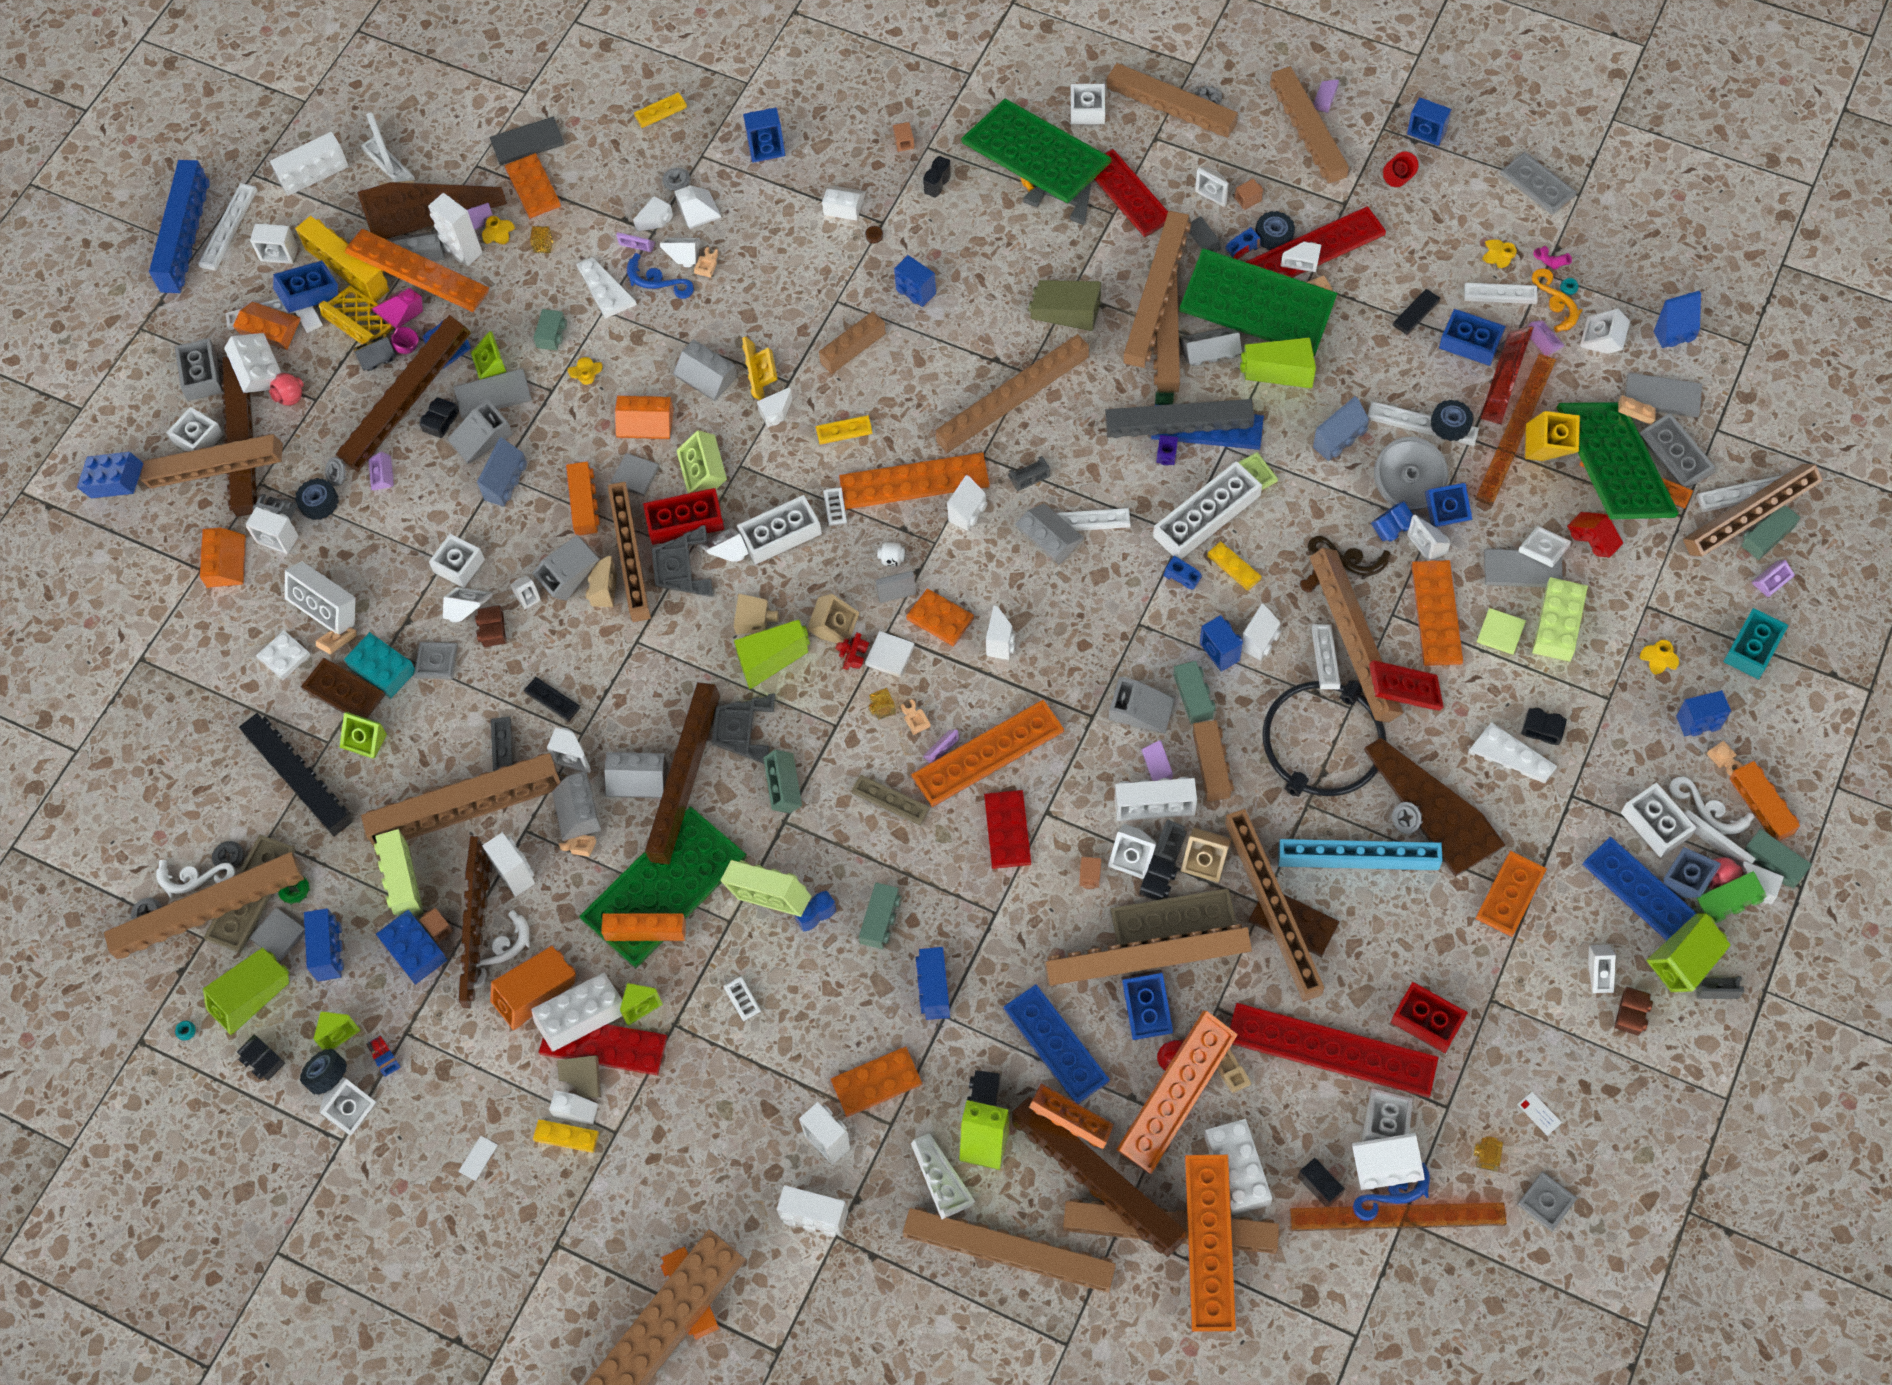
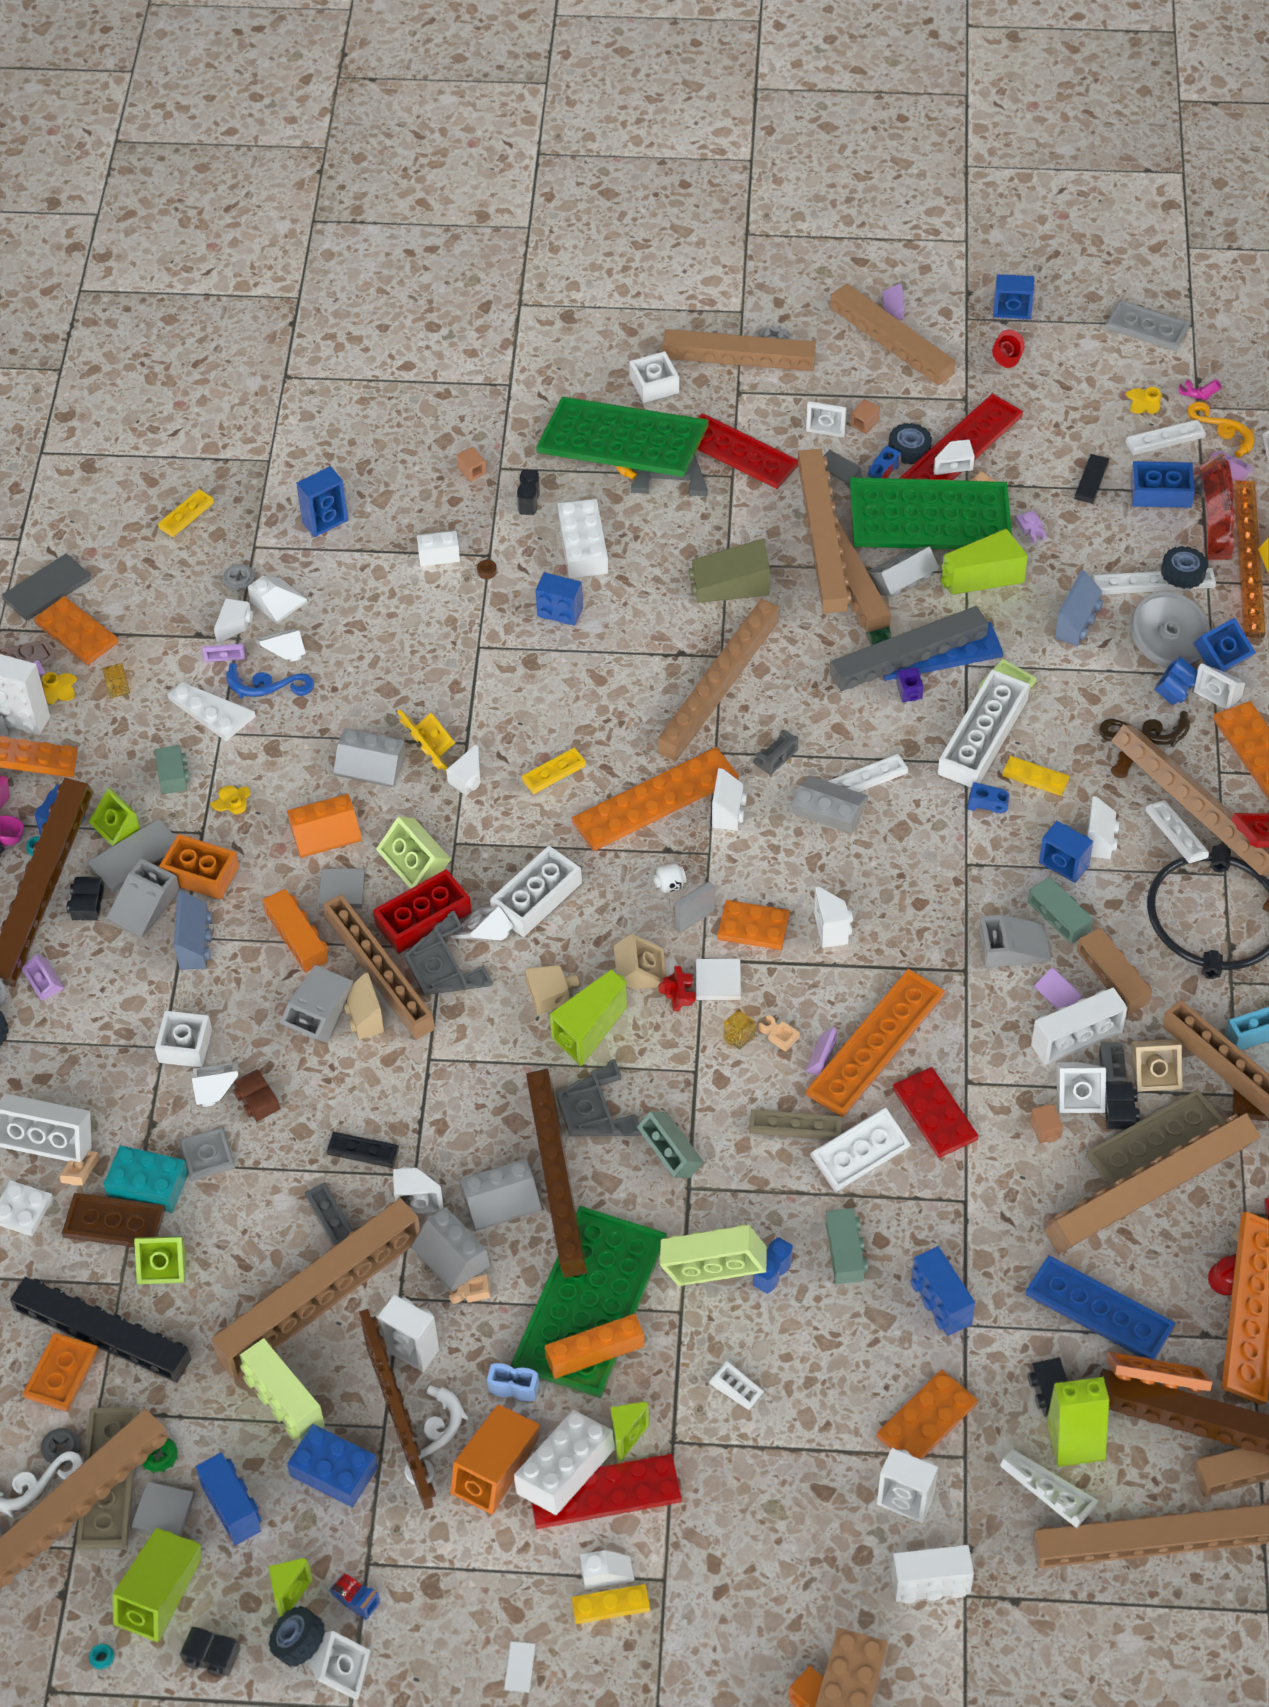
camera: 25 degrees left, 10 degrees down
(253, 797) = (60, 1372): none -> orange plate
(436, 925) = (350, 1429): nougat brick -> none
(525, 592) = (279, 1045): white slope -> none
(533, 420) = (201, 866): none -> orange brick
(572, 932) = (518, 1382): none -> light blue brick
(582, 1074) = (597, 1529): dark tan tile -> none
(706, 265) = (316, 651): light nougat plate -> none
(834, 493) = (575, 836): white slope -> none
(852, 342) = (519, 681): medium nougat brick -> none
(931, 839) = (860, 1149): none -> white tile
(961, 232) = (582, 538): none -> white brick
(1147, 1004) = (1174, 1233): blue slope -> none
(1343, 338) = (1031, 524): none -> lavender plate
(1569, 282) = (1229, 410): teal plate -> none

